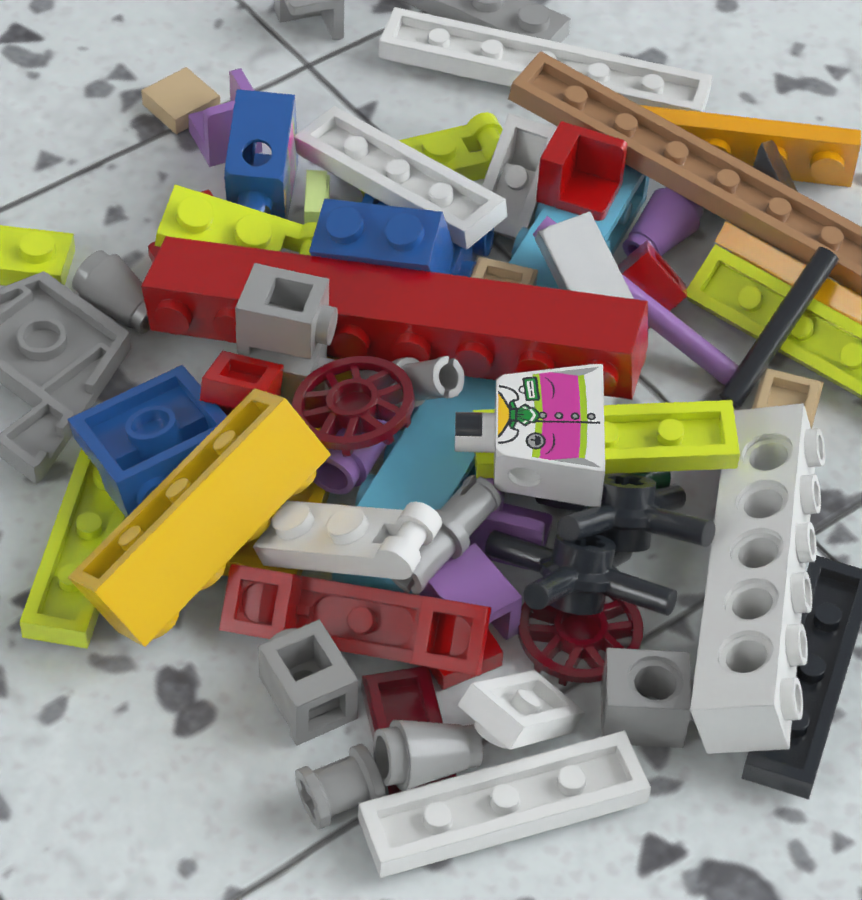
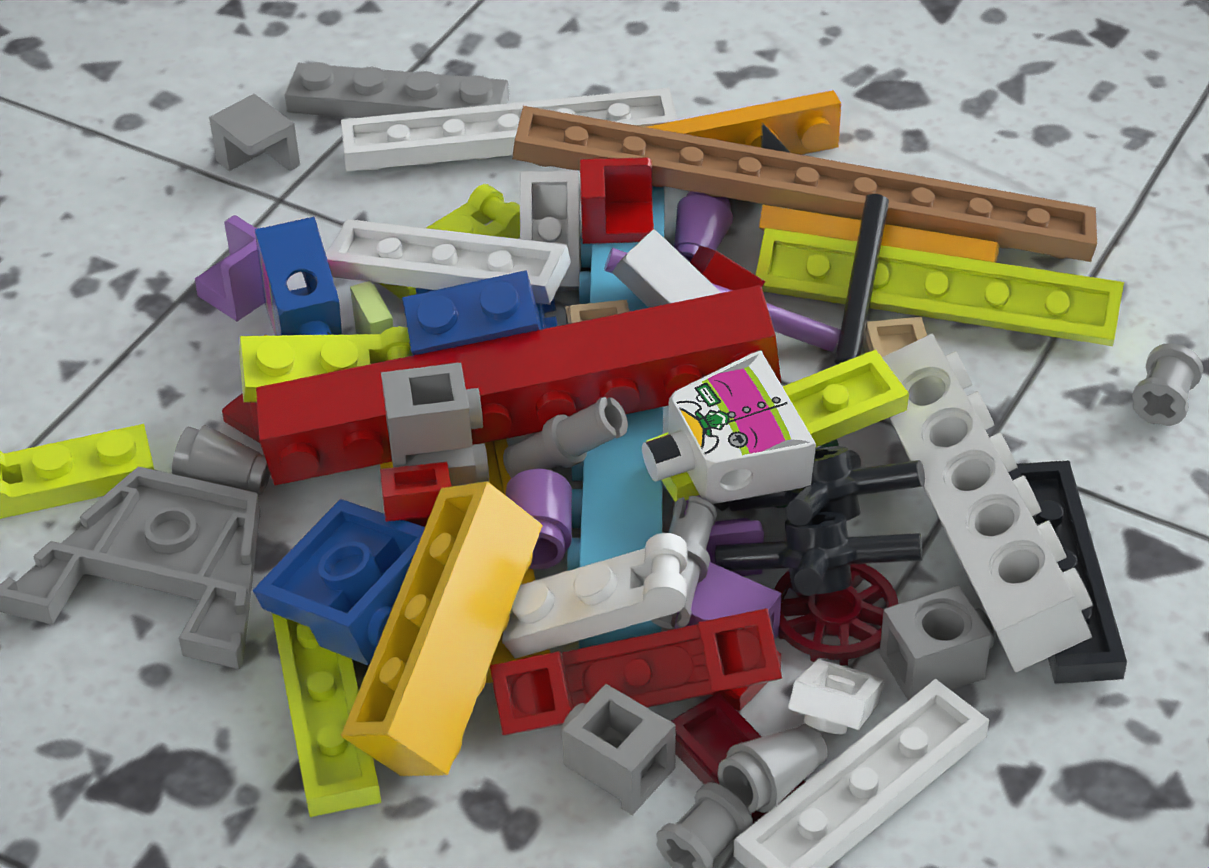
camera: 20 degrees left, 5 degrees down
(177, 97) = (173, 267): tan tile -> none
(356, 403) = (539, 469): dark red wheel -> none

